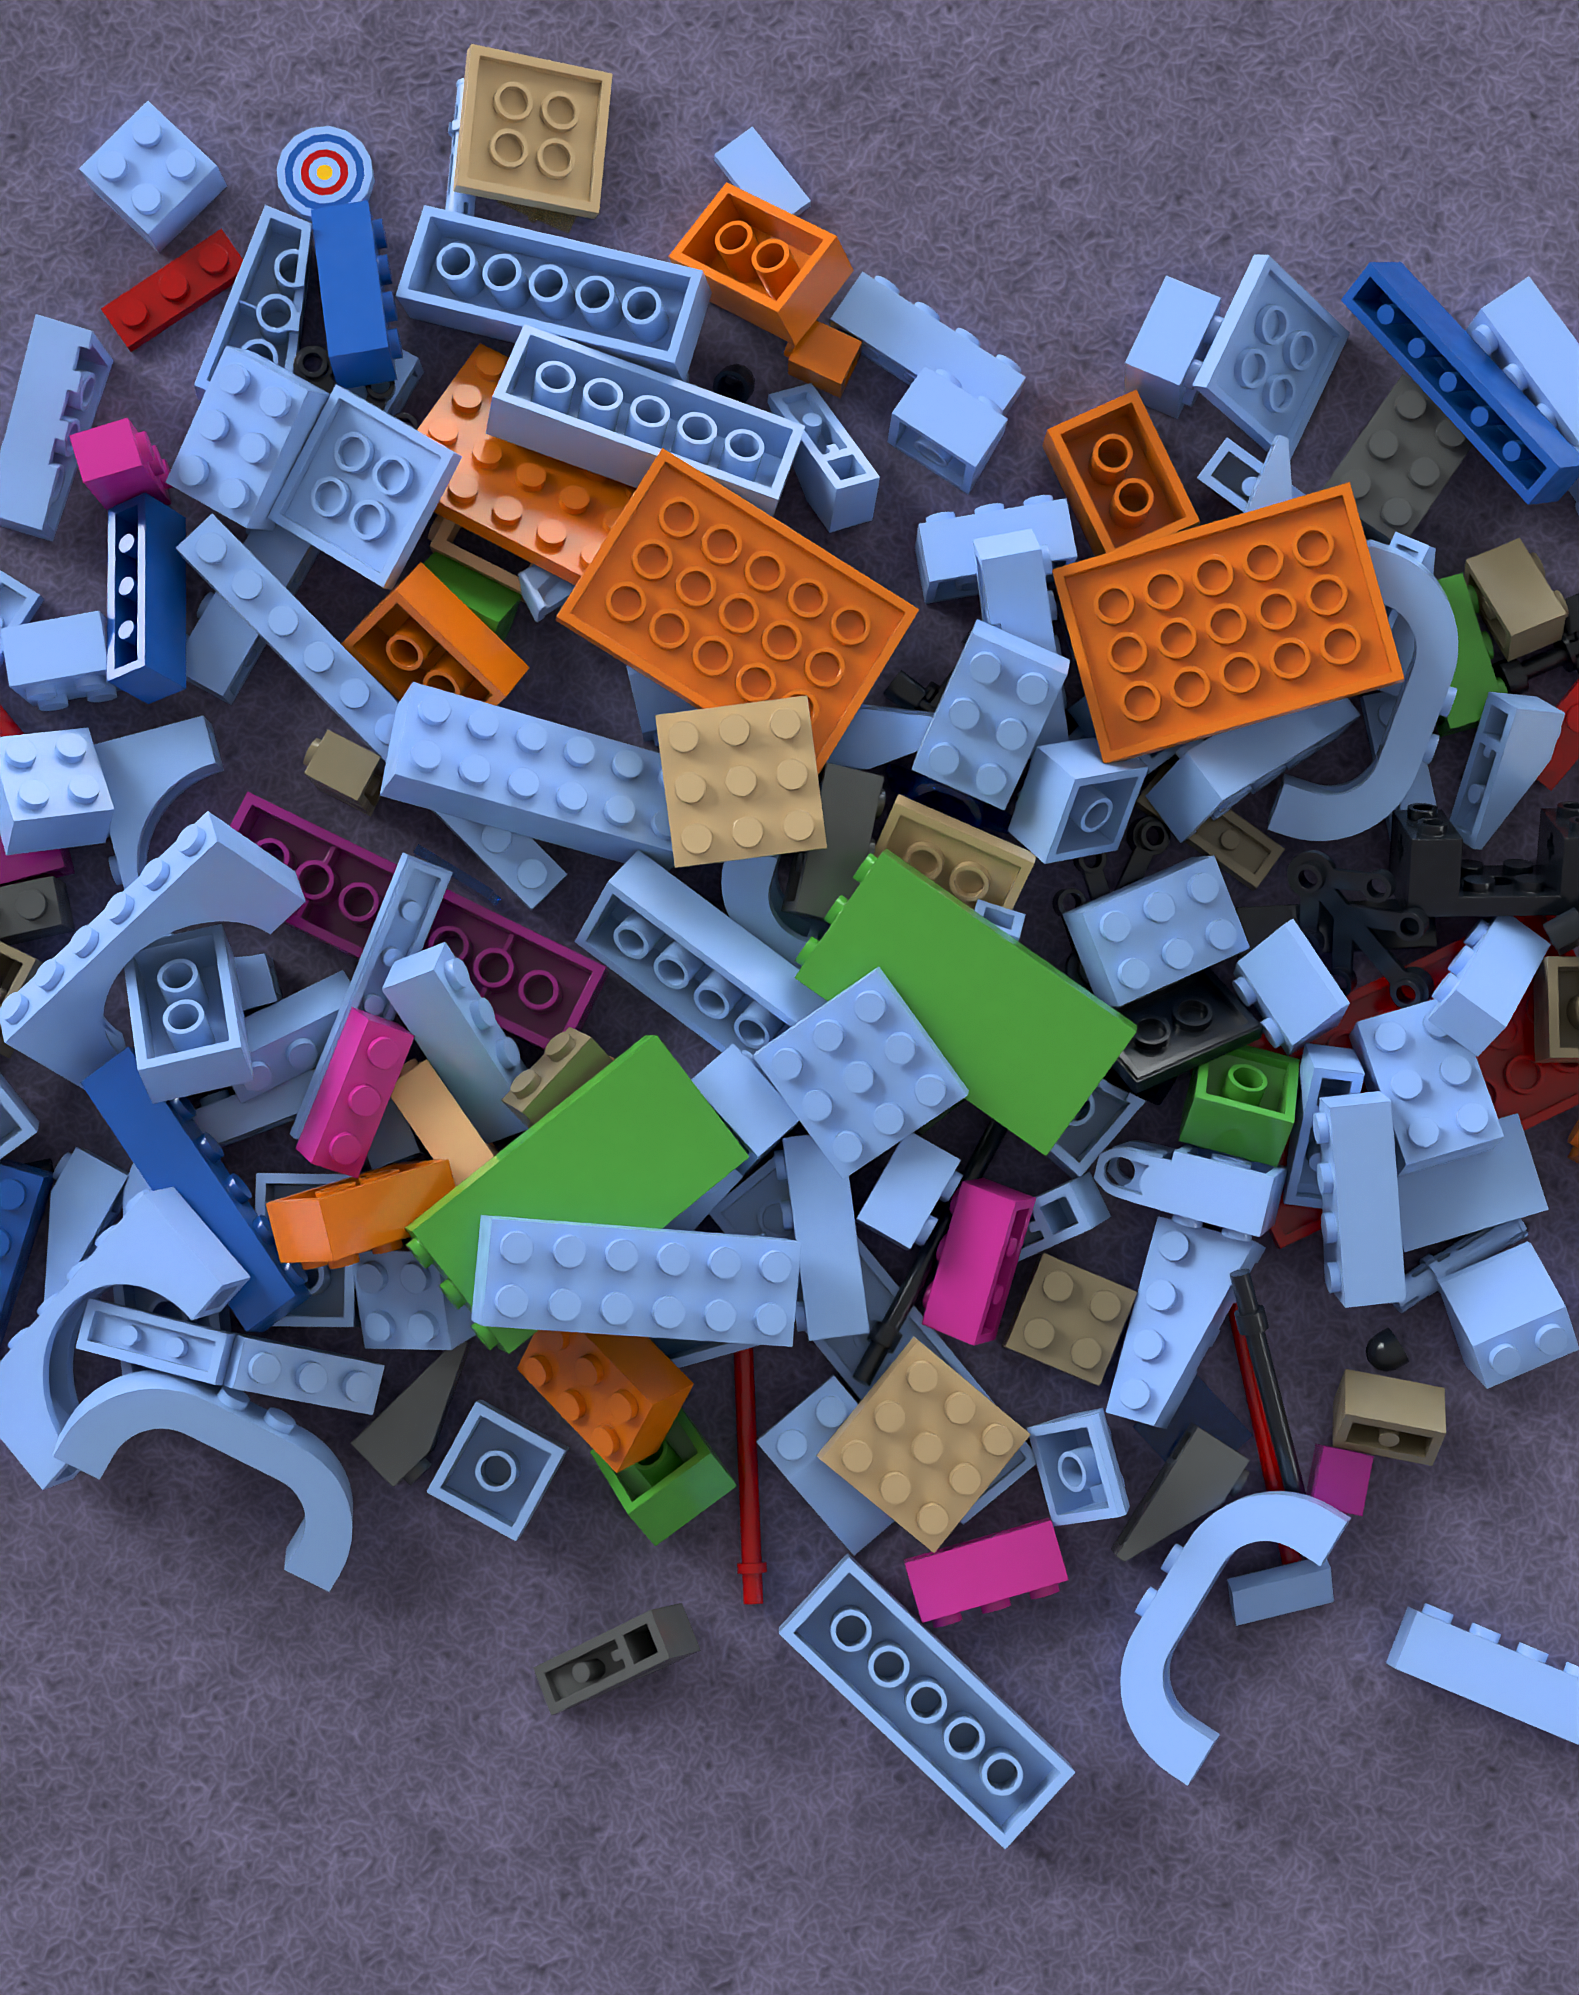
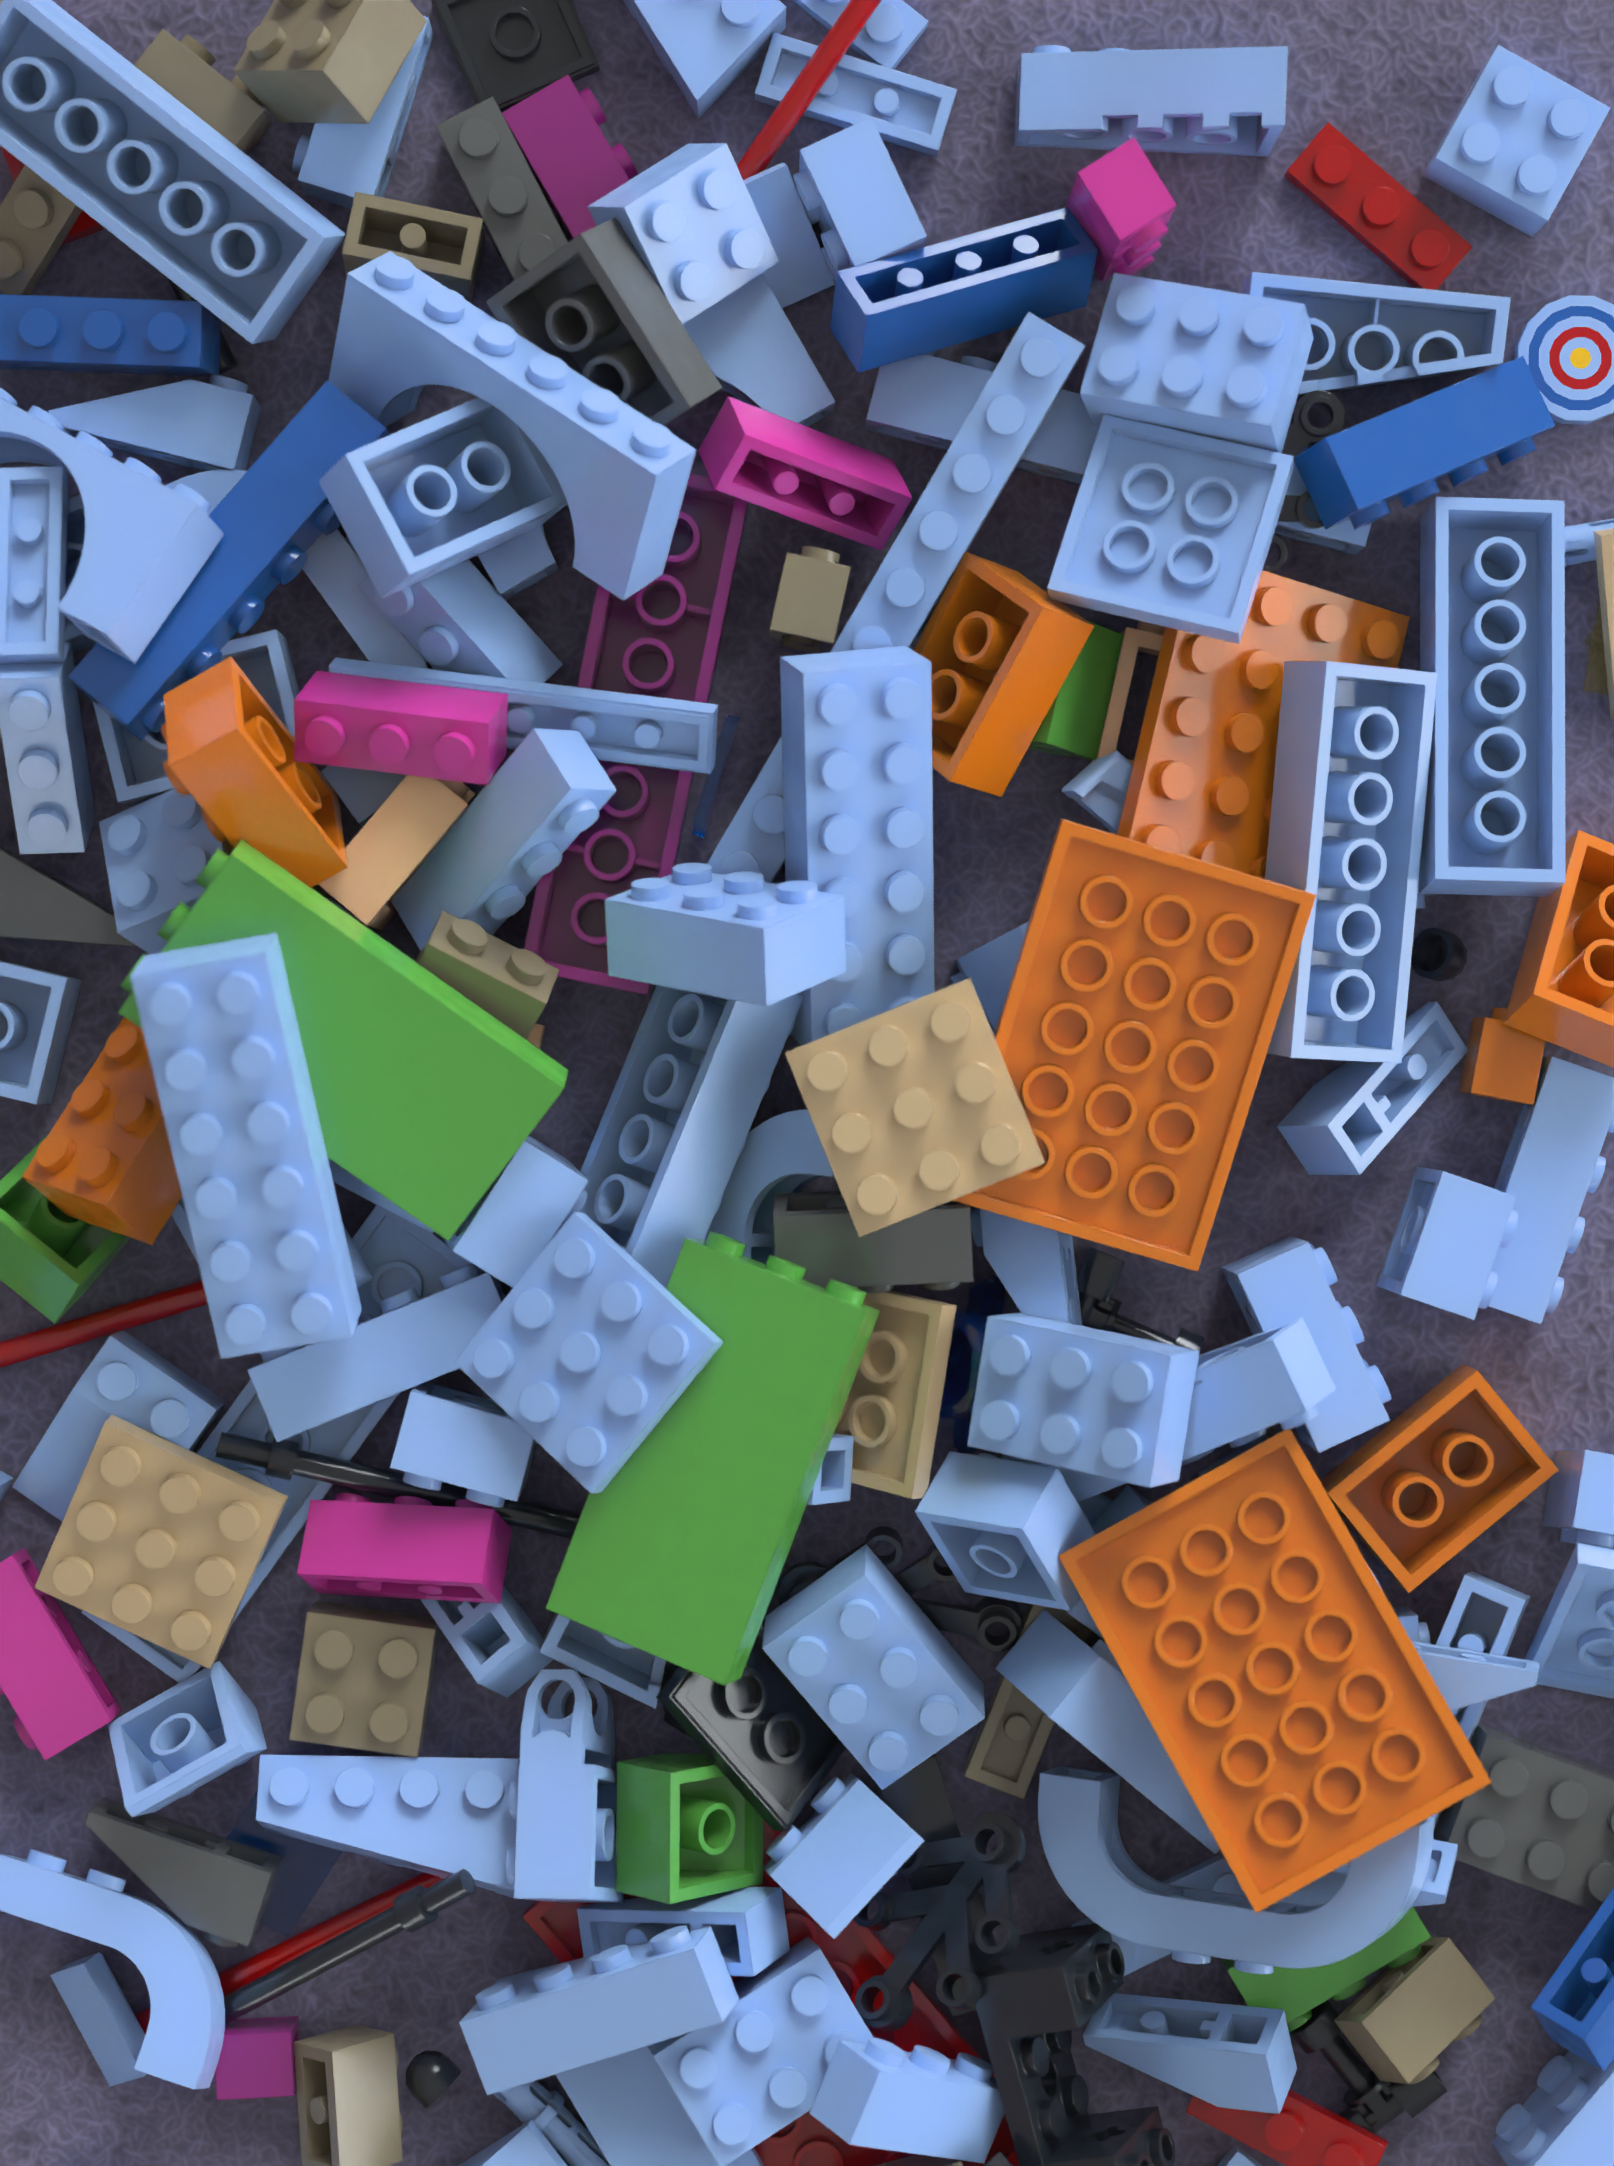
camera: 75 degrees right, 5 degrees up
(94, 857) = (609, 324): none -> dark grey brick
(98, 715) = (801, 264): none -> light blue tile
(250, 748) = (804, 474): none -> dark pink brick
(574, 888) = (726, 934): none -> light blue brick

